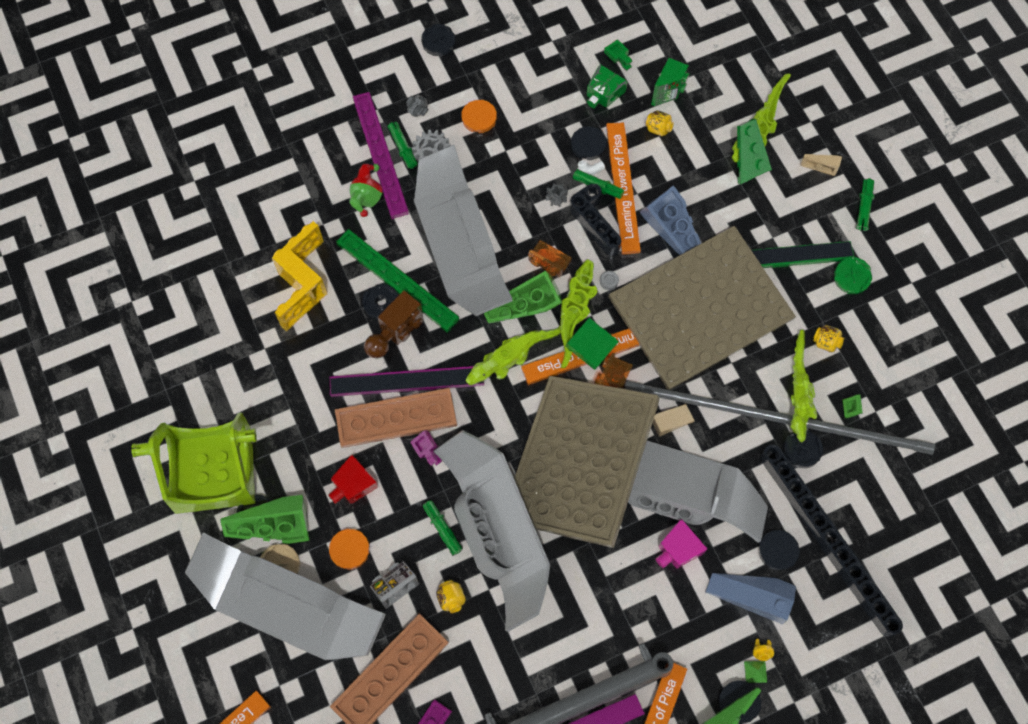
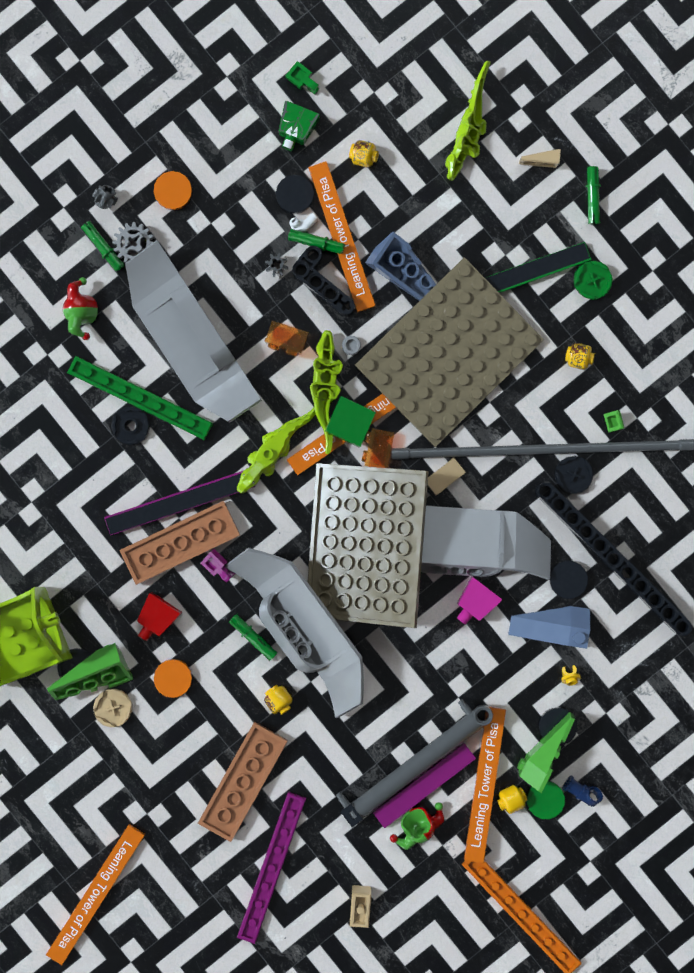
camera: 20 degrees left, 20 degrees up
(282, 602) = (126, 744): light grey piece -> none
(299, 275) = (41, 422): yellow bracket -> none
(380, 155) = (82, 261): magenta tile -> none
(394, 584) = (223, 703): light grey slope -> none
(395, 324) = (154, 452): reddish brown brick -> none
(438, 40) = (104, 107): black tile -> none
(529, 298) = (280, 388): bright green wedge -> none
(670, 82) = (365, 104): green slope -> none
(752, 152) = (466, 167): green wing -> none
(755, 671) = (566, 695): bright green slope -> none
(803, 392) = (564, 419): lime animal -> none

